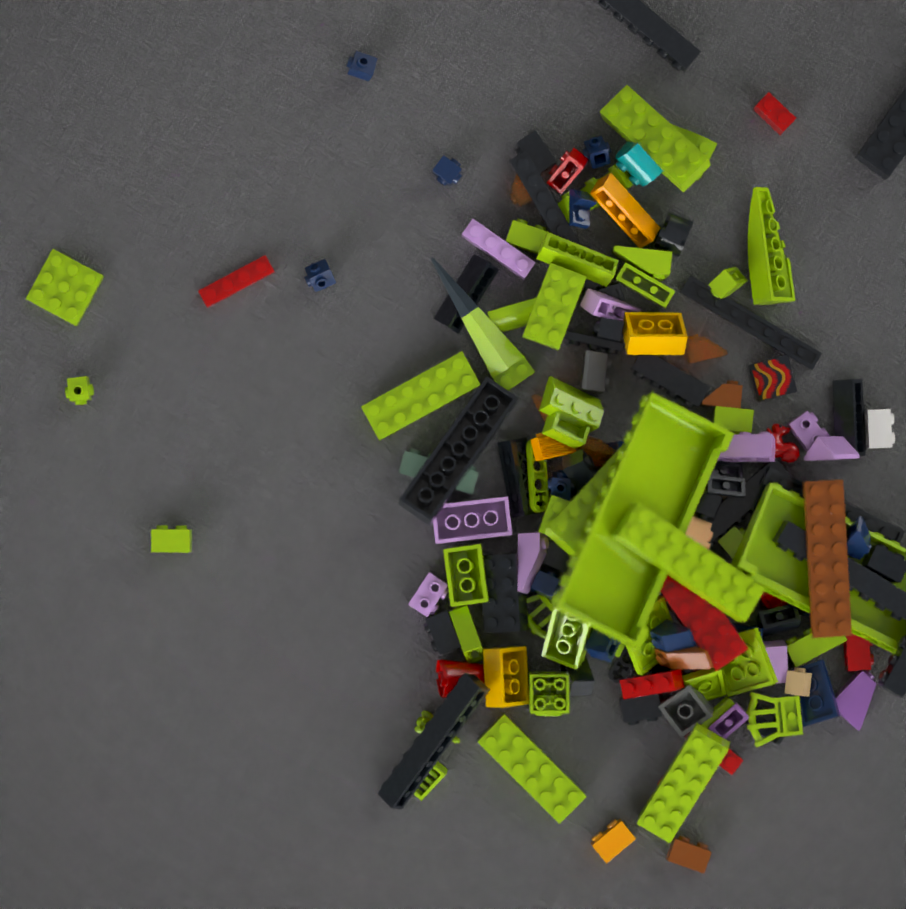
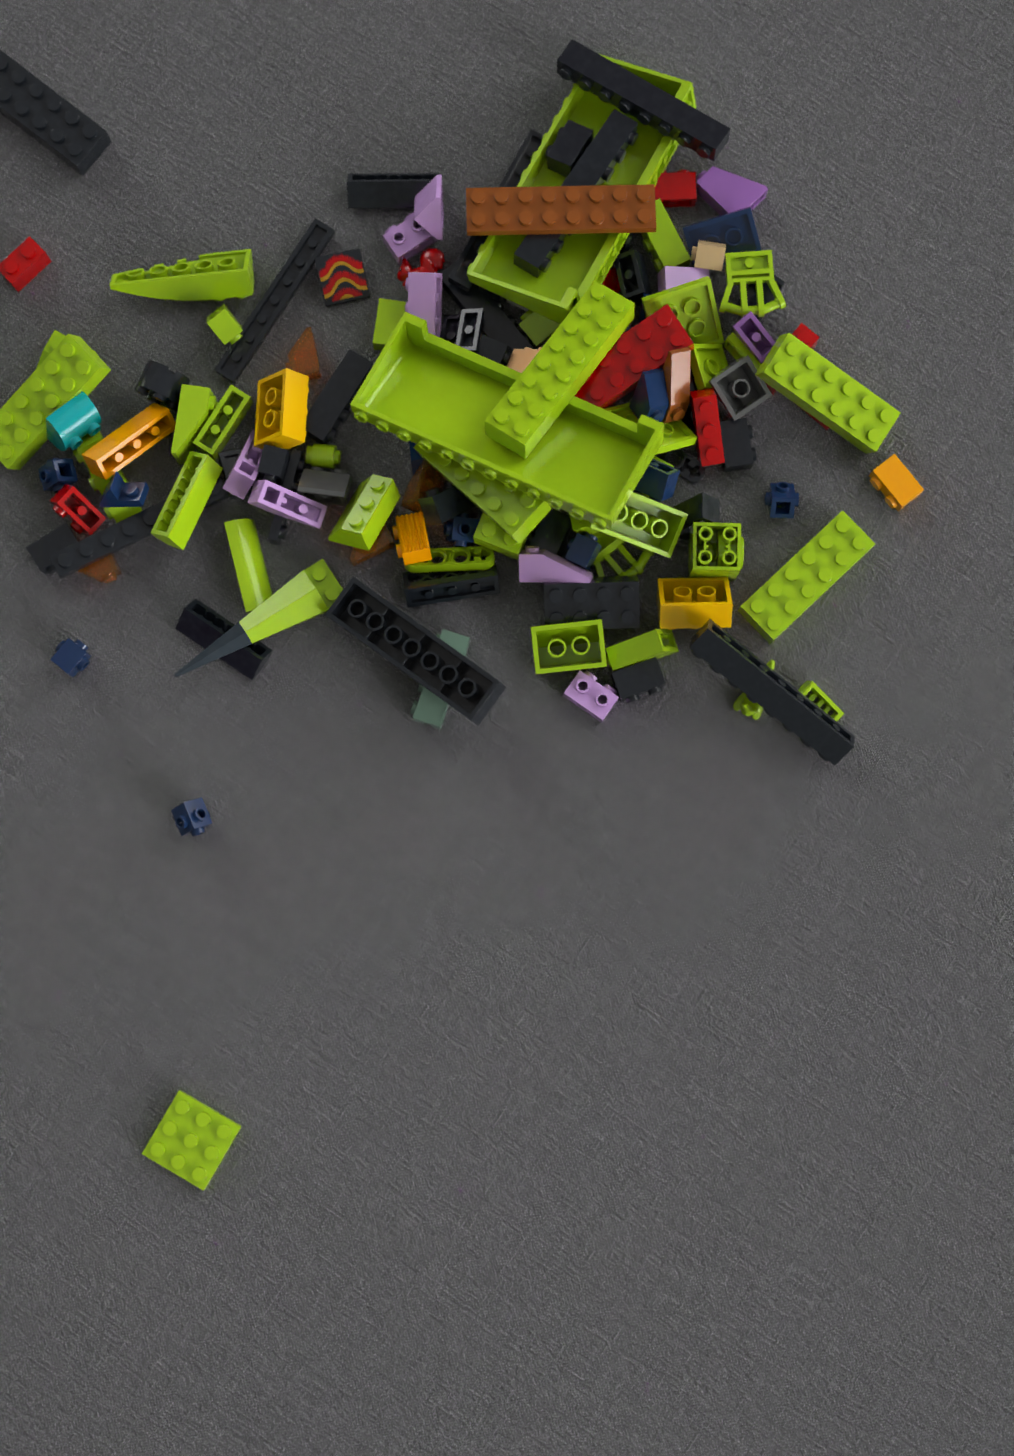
camera: 85 degrees left, 5 degrees down
(74, 385) = (313, 1127): lime brick -> none
(171, 540) = (513, 1013): lime brick -> none
(236, 281) = (194, 922): red plate -> none
(420, 396) = (346, 697): lime brick -> none
(450, 671) = (688, 669): red cone -> none
(473, 520) = (502, 636): lavender brick -> none
(498, 249) = (170, 597): lavender brick -> none
(526, 236) = (157, 563): lime brick -> none
(554, 306) = (242, 528): lime brick -> none
(565, 432) = (398, 520): lime panel -> none
(576, 342) = (287, 503): none -> lavender slope
(594, 746) = (781, 500): none -> dark blue brick
(621, 368) = (323, 455): none -> lime brick
(689, 854) = (914, 392): dark orange brick -> none
(725, 395) = (360, 332): dark orange slope -> none
(858, 539) = (538, 175): dark blue slope -> none
(878, 428) = (408, 155): white brick -> none

